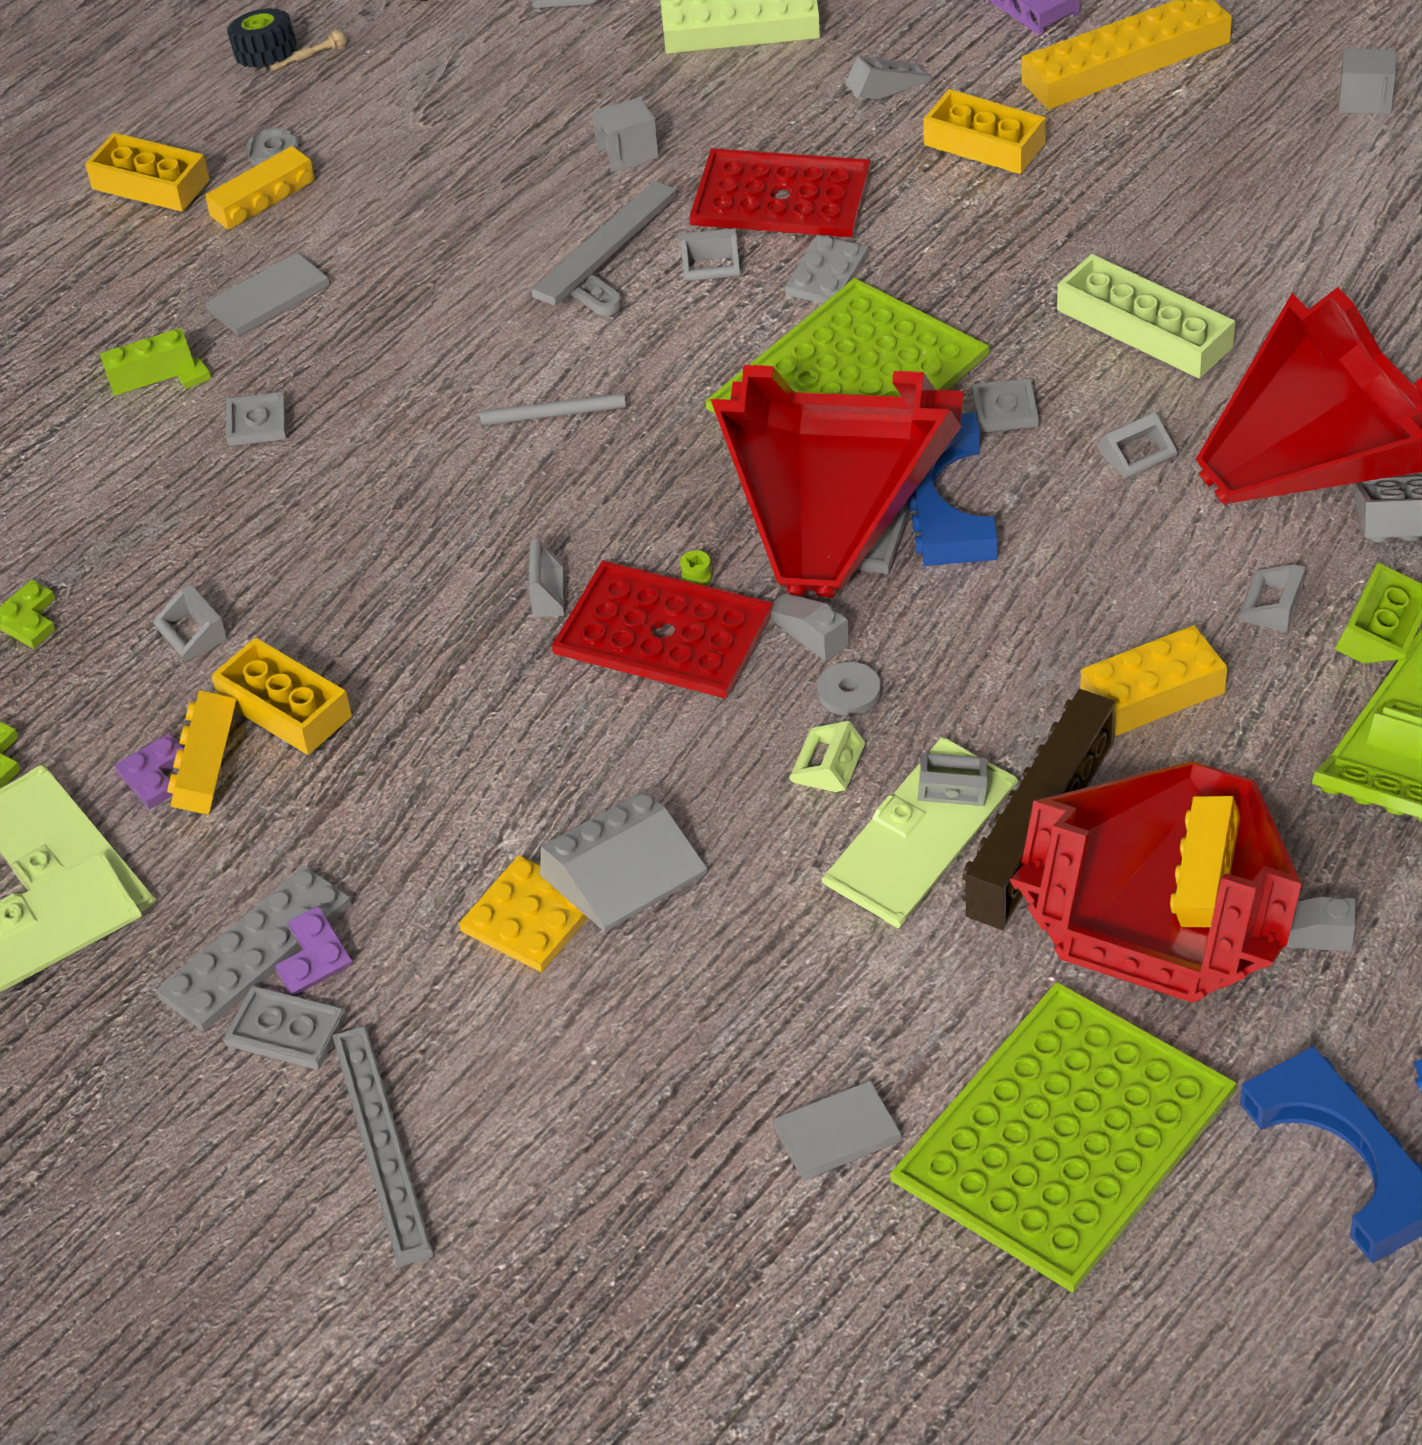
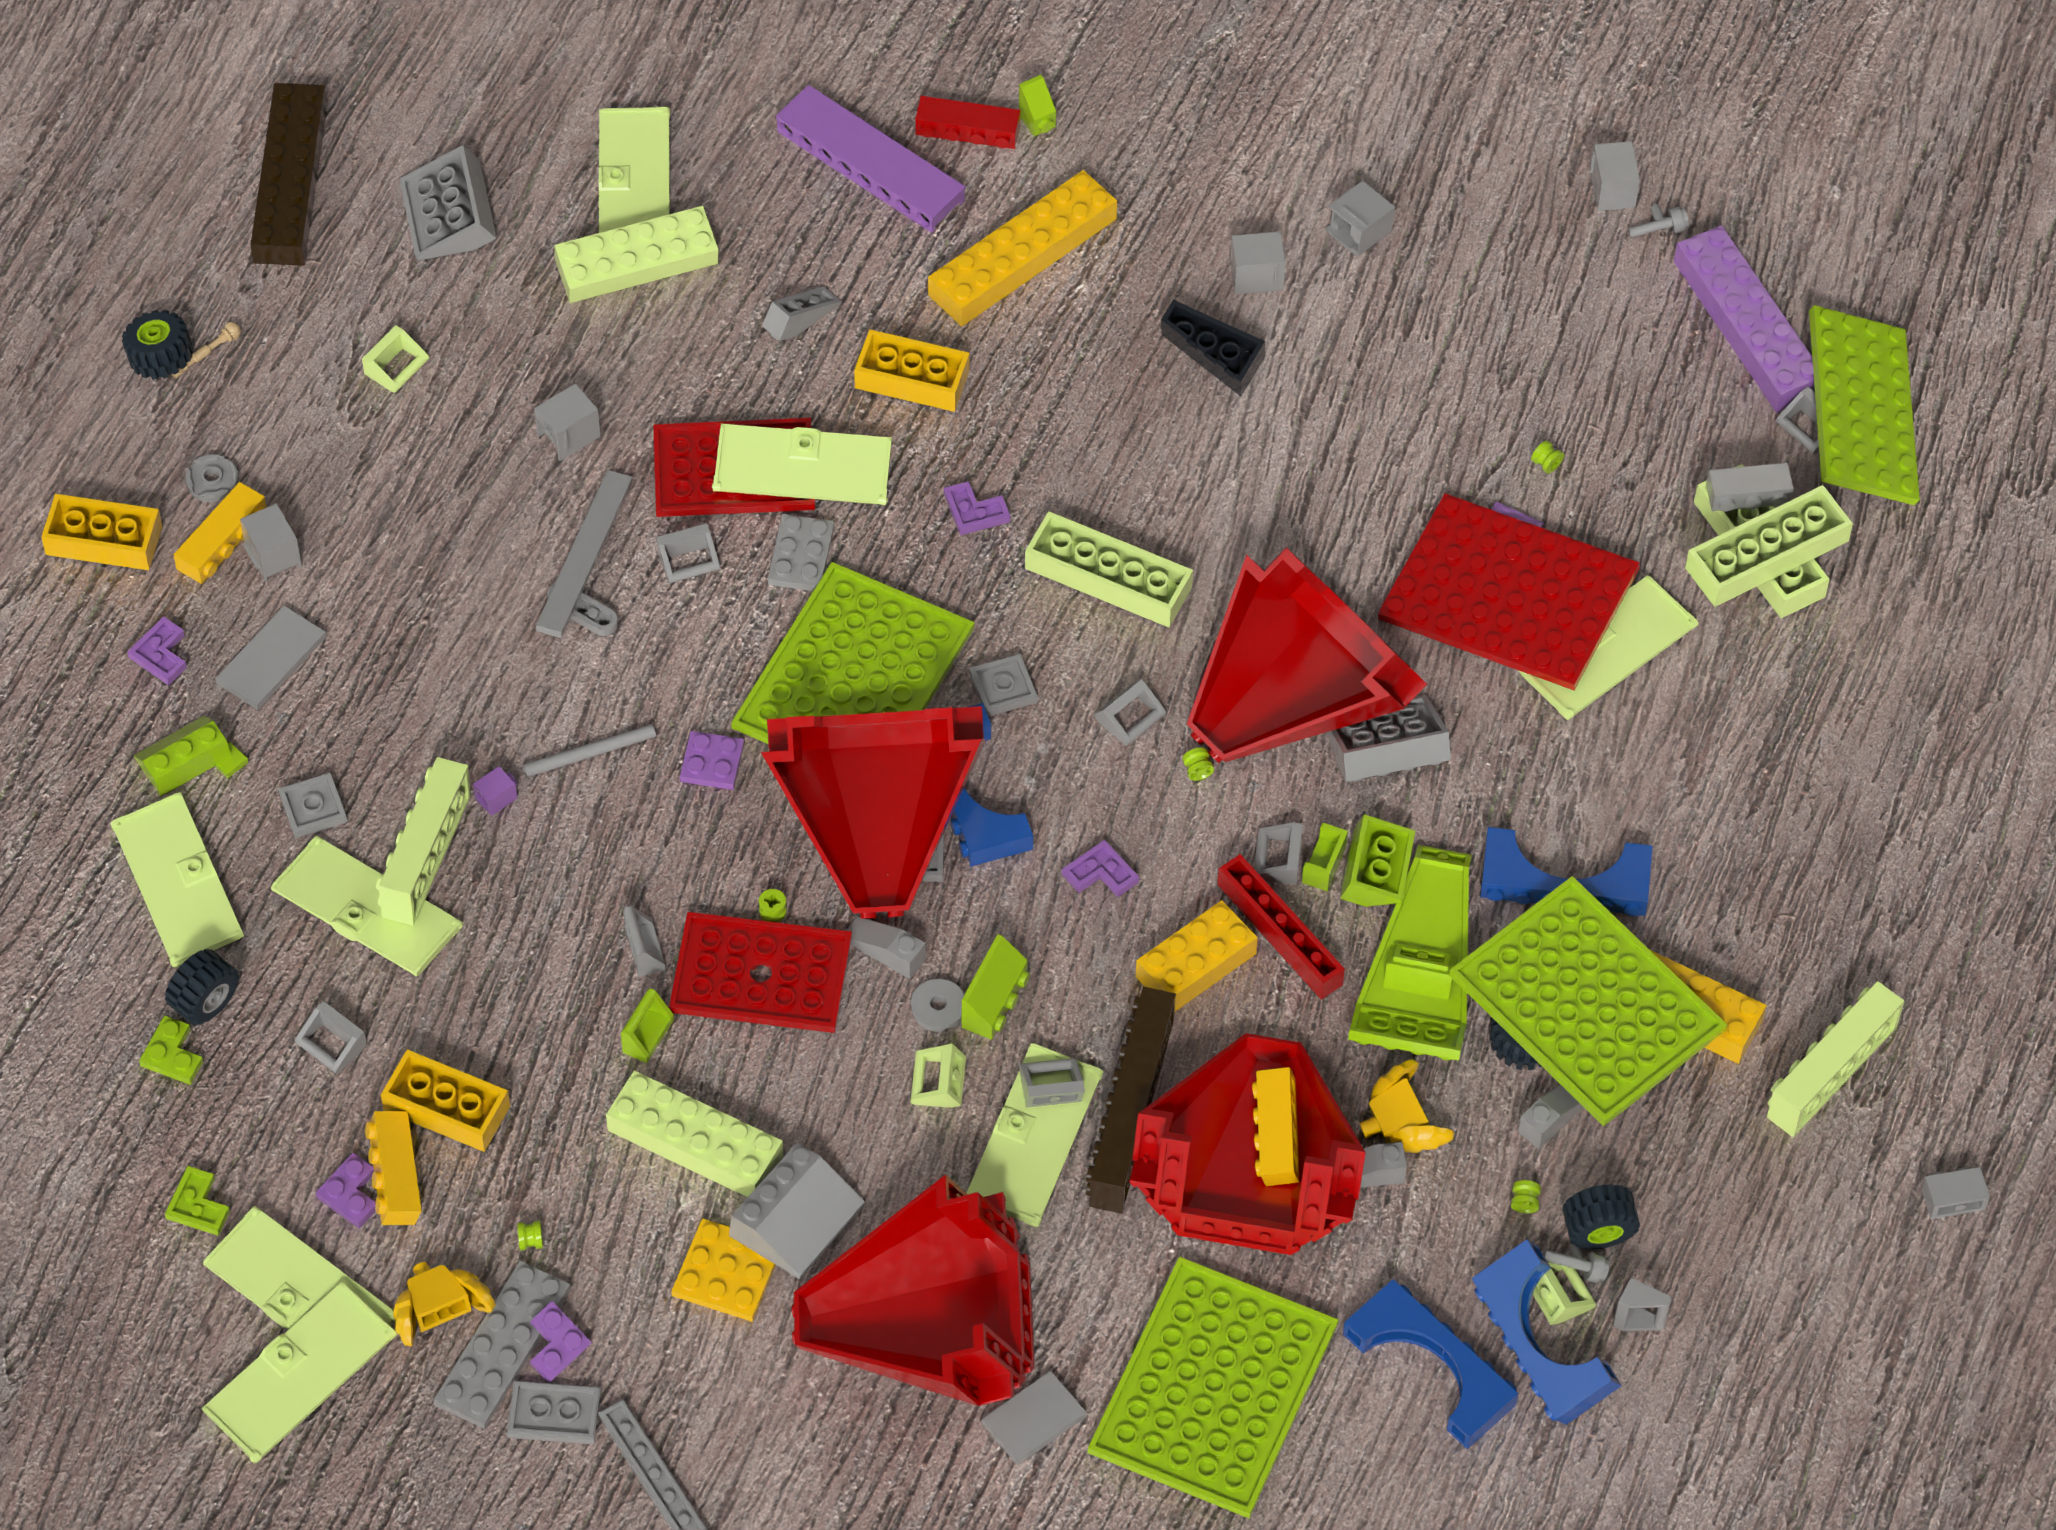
camera: 20 degrees left, 10 degrees up
(72, 552) = (202, 987): none -> black wheel
(97, 465) = (177, 879): none -> yellowish green door
(159, 274) = (154, 651): none -> medium lavender plate
(195, 887) = (436, 1298): none -> yellow torso
(275, 513) = (346, 897): none -> yellowish green door
(300, 194) = (270, 541): none -> light grey piece
(323, 841) = (530, 1235): none -> lime wheel
(348, 457) = (424, 841): none -> yellowish green brick
(443, 428) = (495, 790): none -> medium lavender brick
(475, 66) = (385, 351): none -> yellowish green tile
(526, 665) = (646, 1027): none -> lime tile
(531, 766) = (693, 1134): none -> yellowish green brick
(676, 434) = (712, 760): none -> medium lavender plate
(746, 970) = (929, 1299): none -> red piece
(849, 192) = (802, 464): none -> yellowish green door
(911, 675) = (994, 989): none -> lime slope
(1013, 258) = (974, 515): none -> medium lavender plate
(1066, 579) = (1103, 864): none -> medium lavender plate
(1200, 501) = (1198, 764): none -> lime wheel
(1258, 664) = (1281, 926): none -> red brick
(1306, 143) = (1214, 345): none -> black wedge
(1327, 608) = (1325, 857): none -> lime panel
(1359, 872) = (1399, 1114): none -> yellow torso

